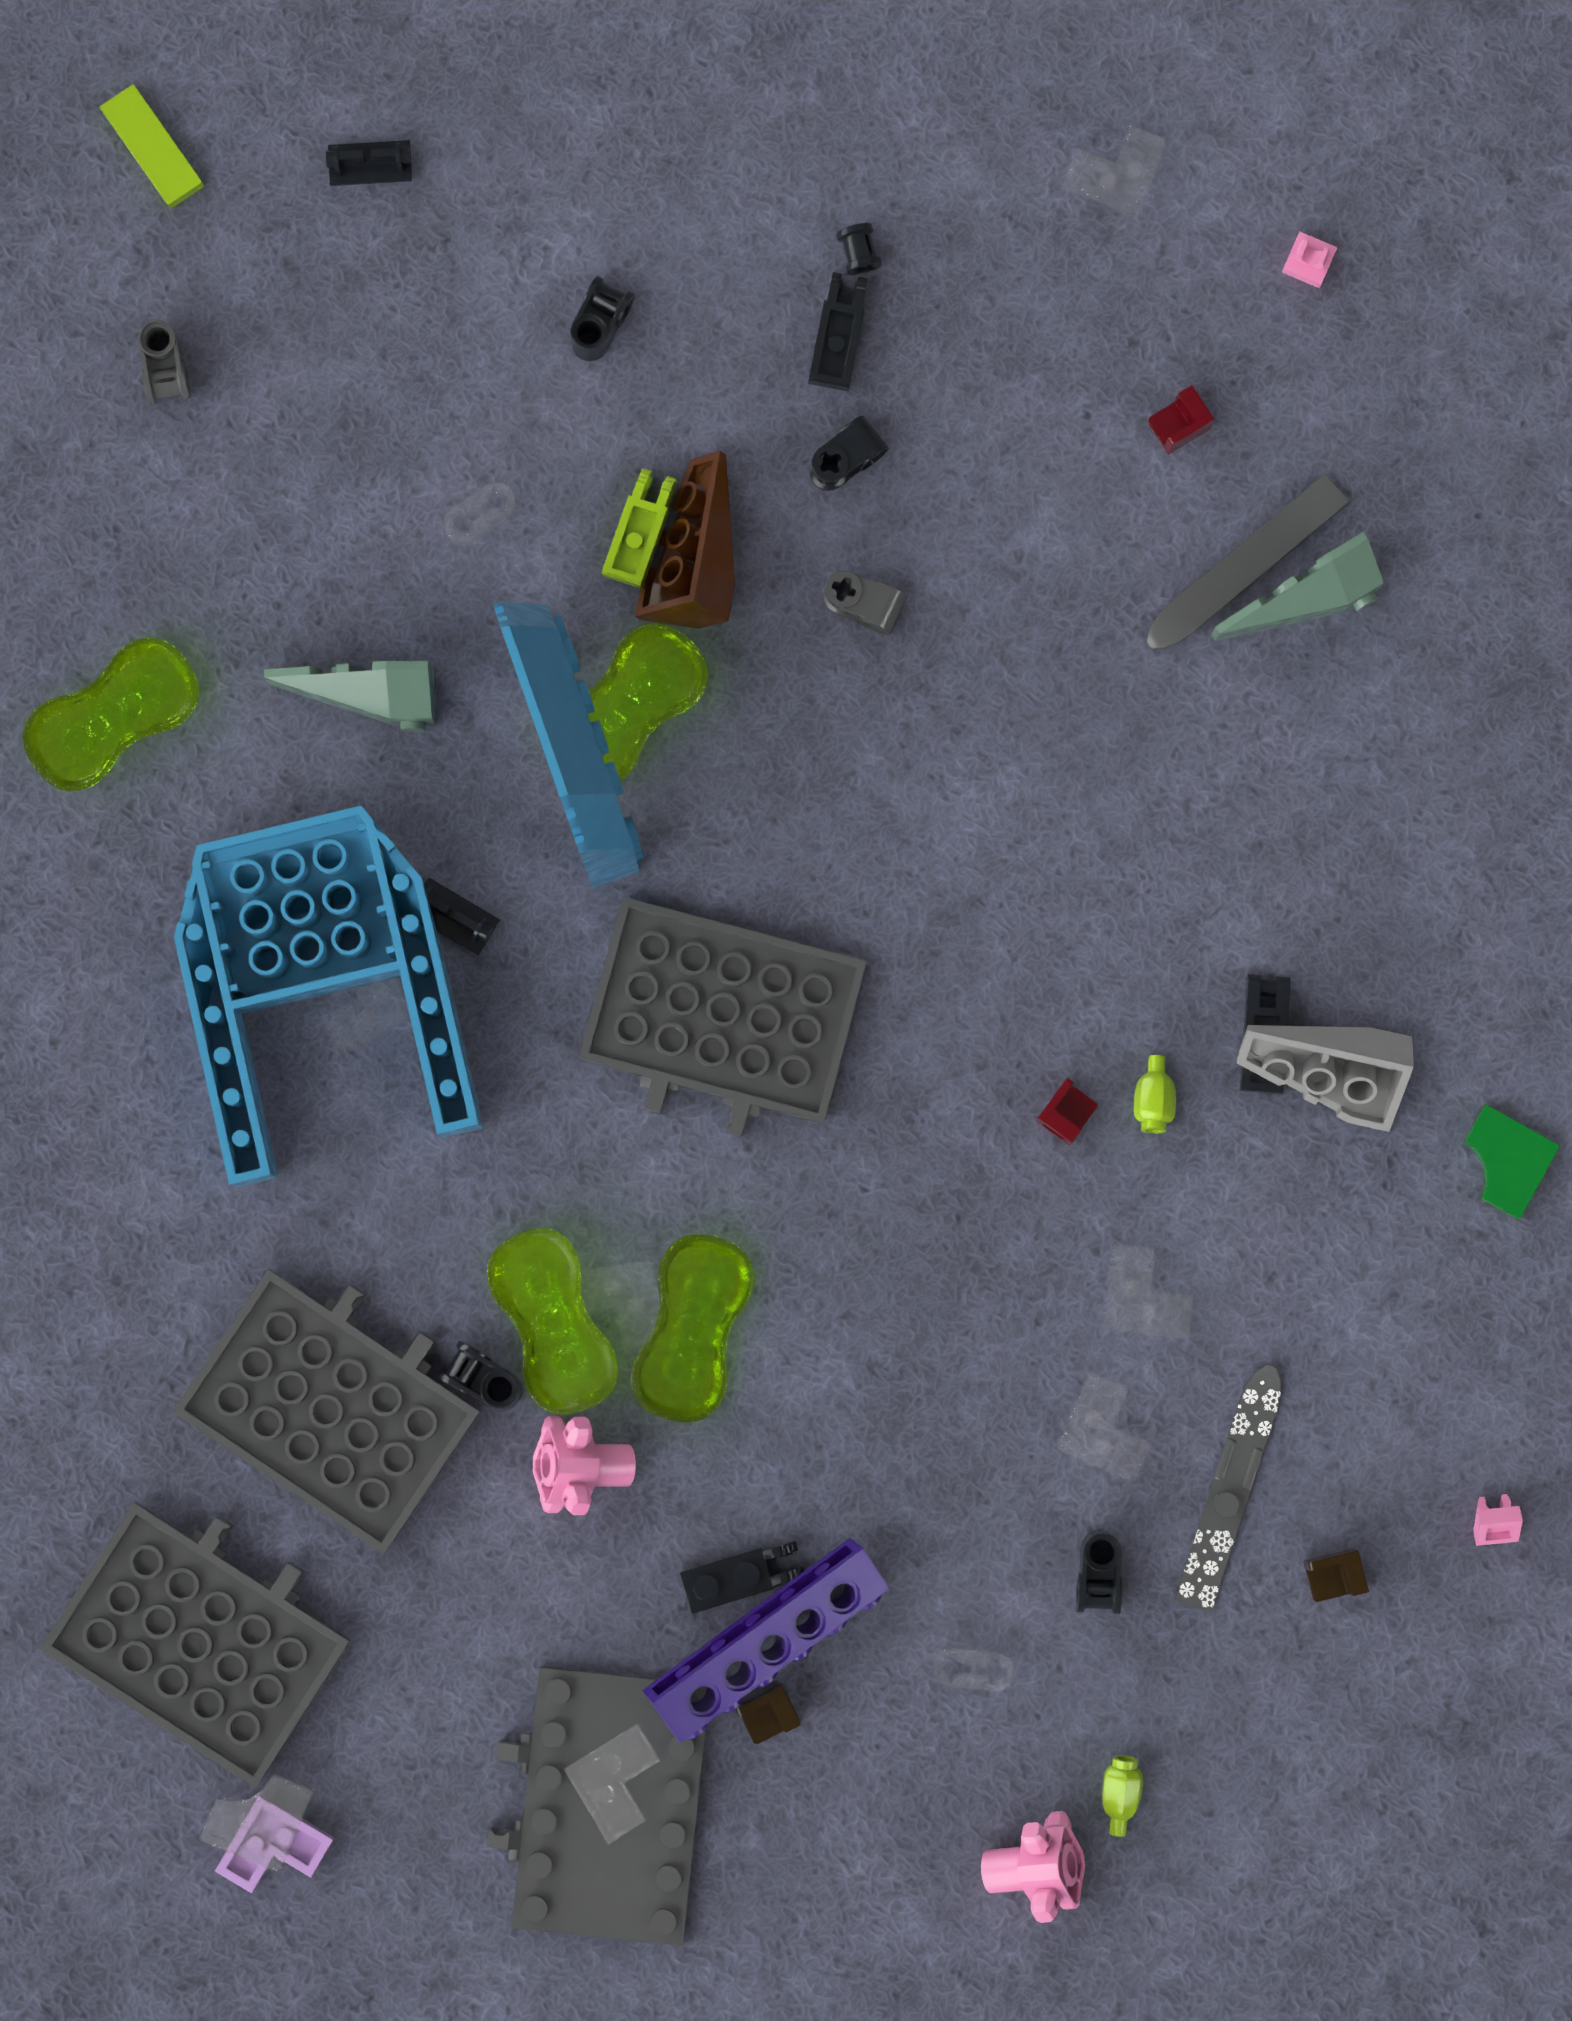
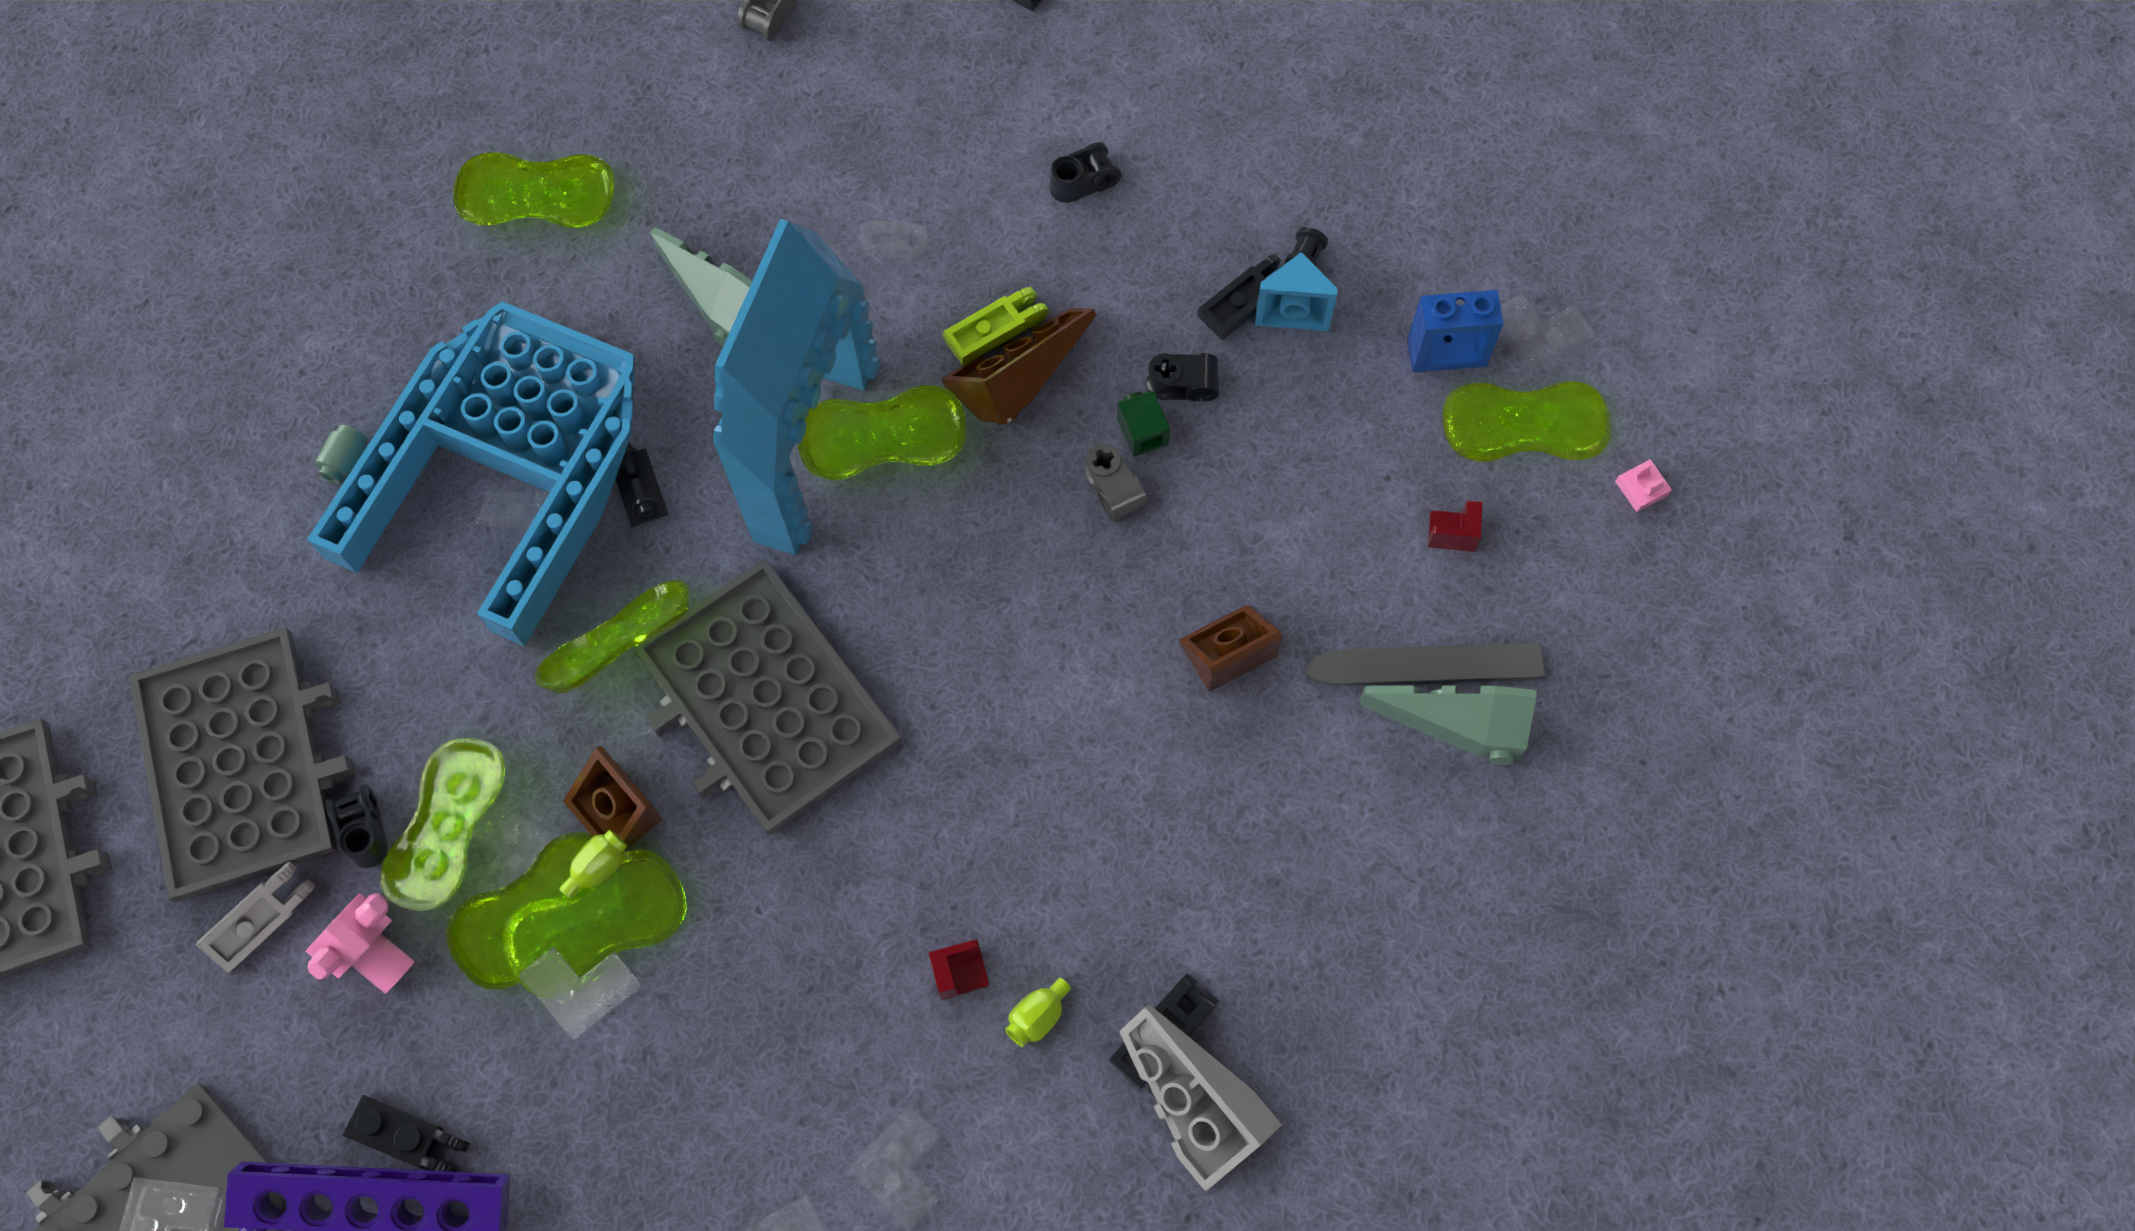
camera: 40 degrees right, 15 degrees down
(169, 1088) = (340, 453): none -> sand green brick
(468, 1512) = (253, 920): none -> light grey hinge
(566, 1029) = (591, 652): none -> clear neon green plate
(674, 1200) = (609, 800): none -> reddish brown slope
(712, 1255) = (594, 863): none -> lime plant
(733, 1332) = (626, 911): none -> clear neon green plate
(788, 1369) = (575, 1000): none -> clear tile
(844, 525) = (1143, 422): none -> dark green brick
(894, 305) = (1296, 297): none -> dark azure slope
(1048, 248) = (1468, 328): none -> blue window
(1072, 671) = (1231, 646): none -> reddish brown slope
(1142, 289) = (1494, 422): none -> clear neon green plate

